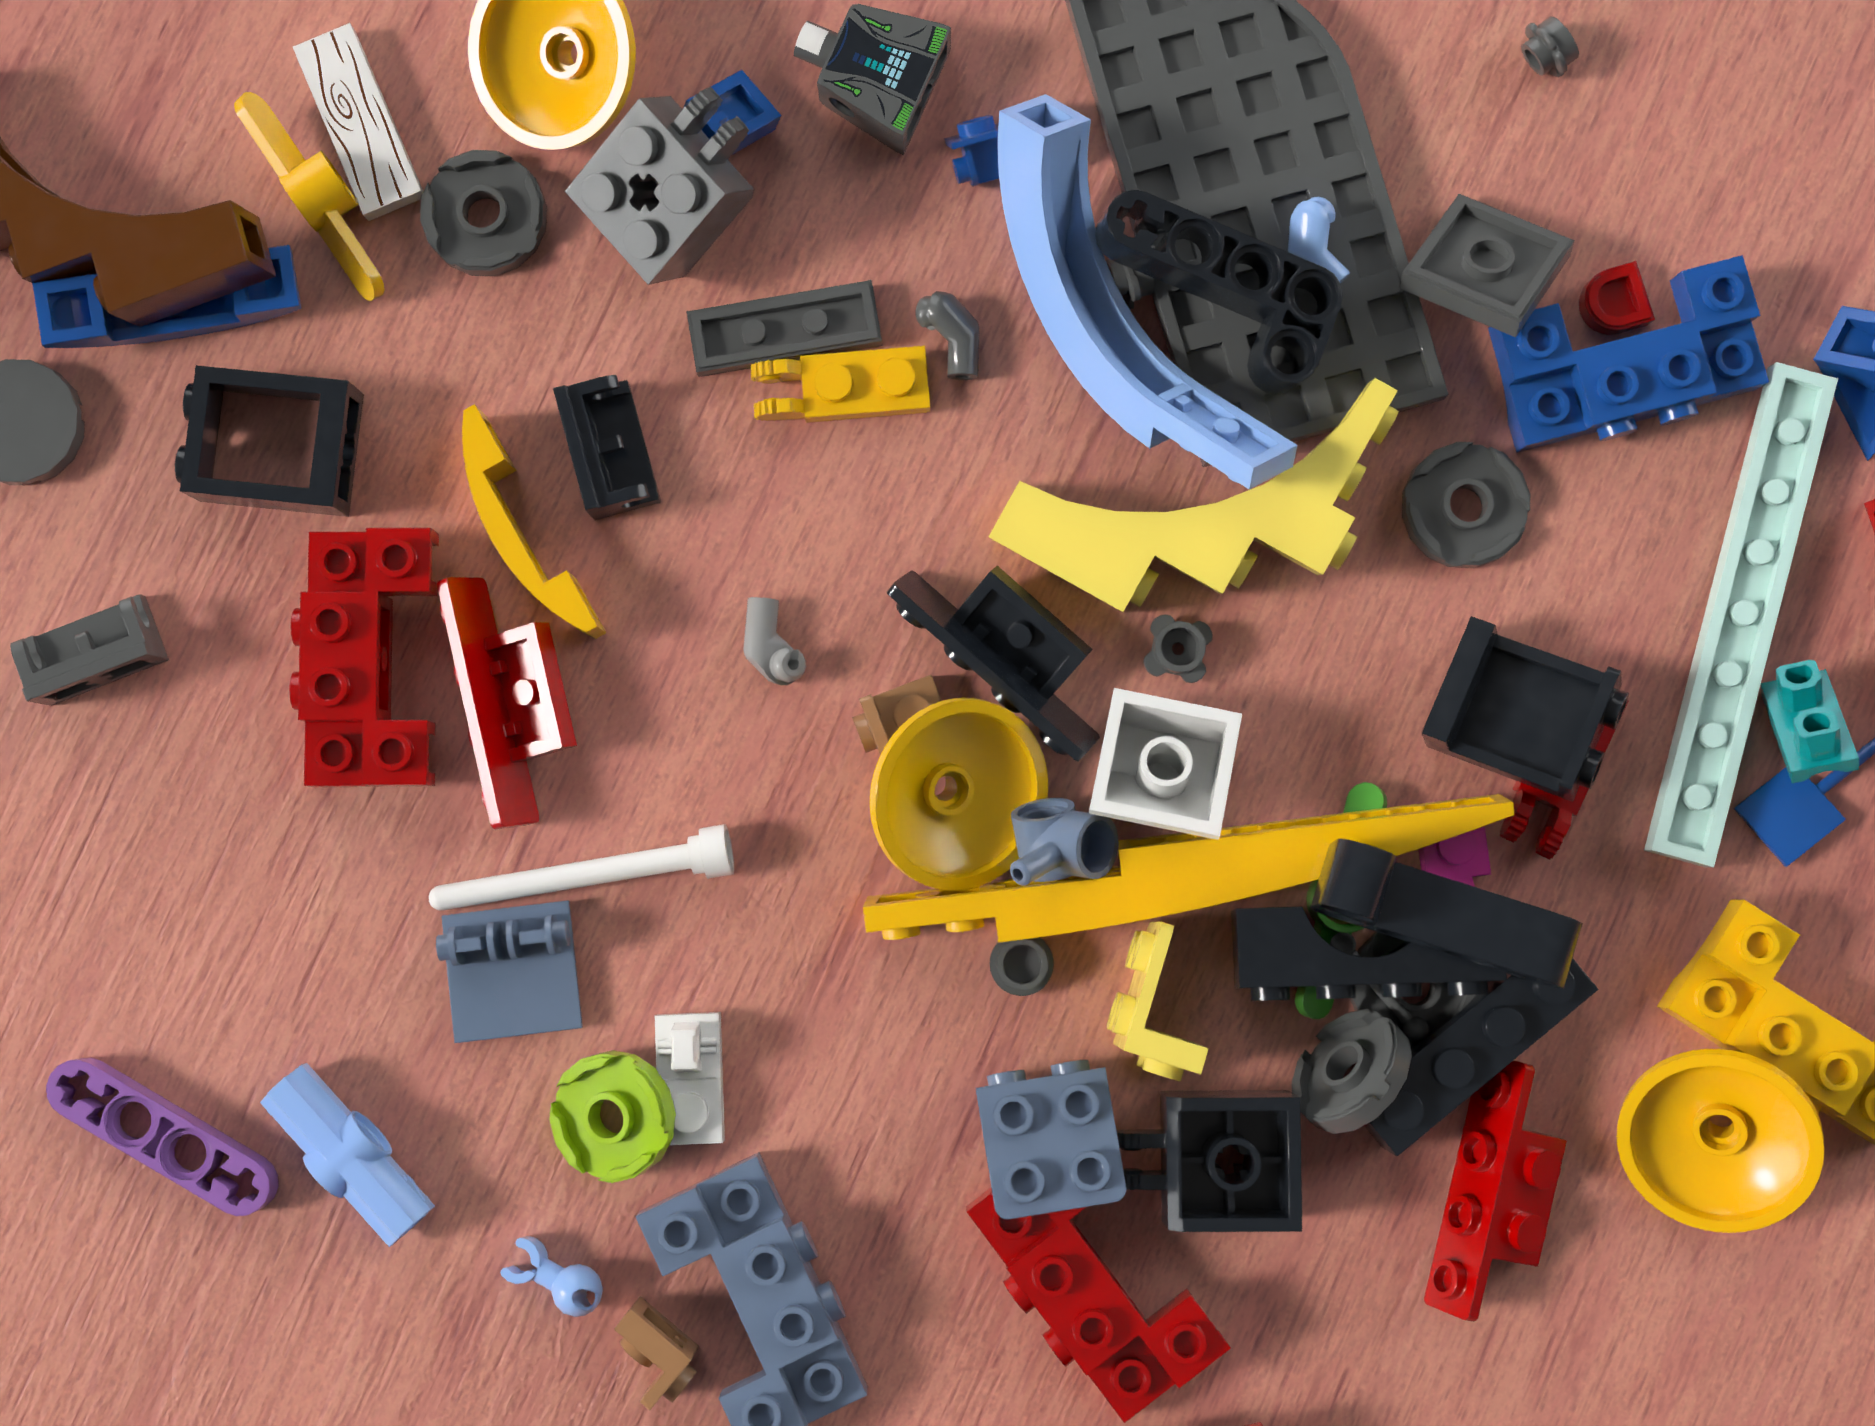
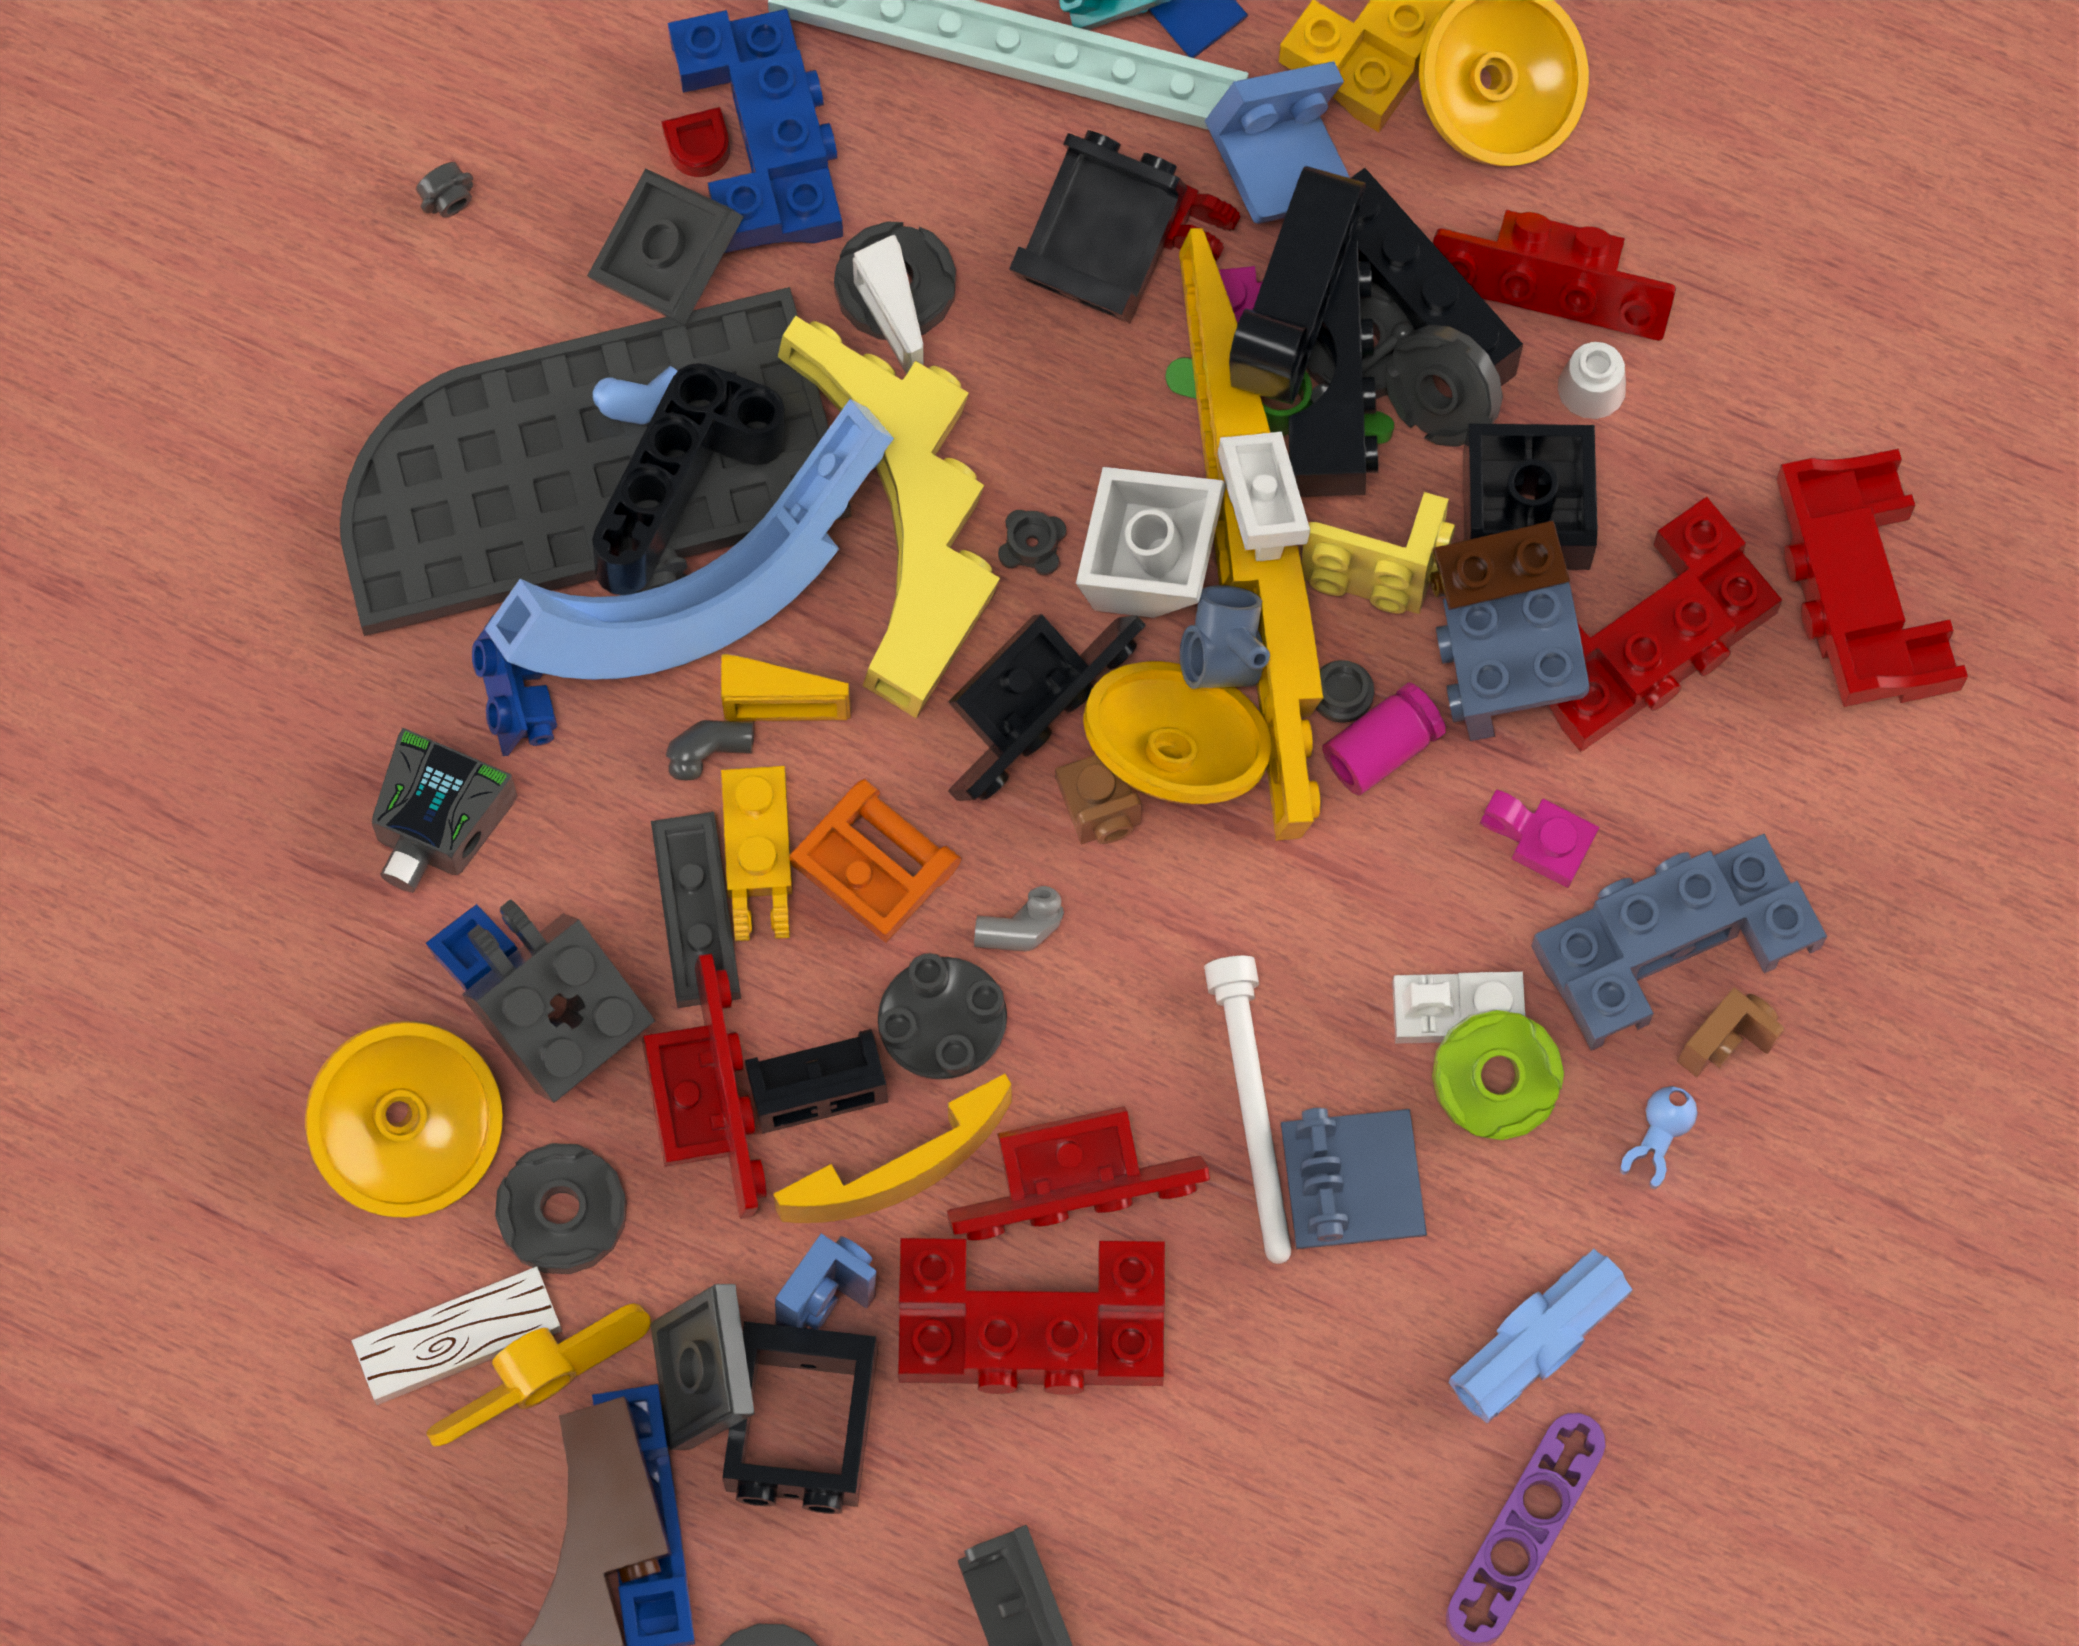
camera: 90 degrees left, 15 degrees down
(303, 343) = (702, 1367): none -> dark grey tile
(398, 468) = (827, 1266): none -> medium blue bracket
(586, 331) = (698, 1092): none -> red bracket
(672, 568) = (942, 1017): none -> dark grey dish
(818, 484) = (860, 873): none -> orange plate
(866, 1170) = (1549, 840): none -> dark pink plate
(966, 1006) = (1384, 738): none -> dark pink piece
(1006, 375) = (776, 693): none -> yellow slope
(1130, 1128) = (1499, 565): none -> reddish brown hinge
(1206, 878) = (1263, 493): none -> white hinge
(1371, 1228) = (1593, 381): none -> white hat
(1449, 490) = (885, 288): none -> white slope
(1631, 900) = (1272, 131): none -> medium blue bracket

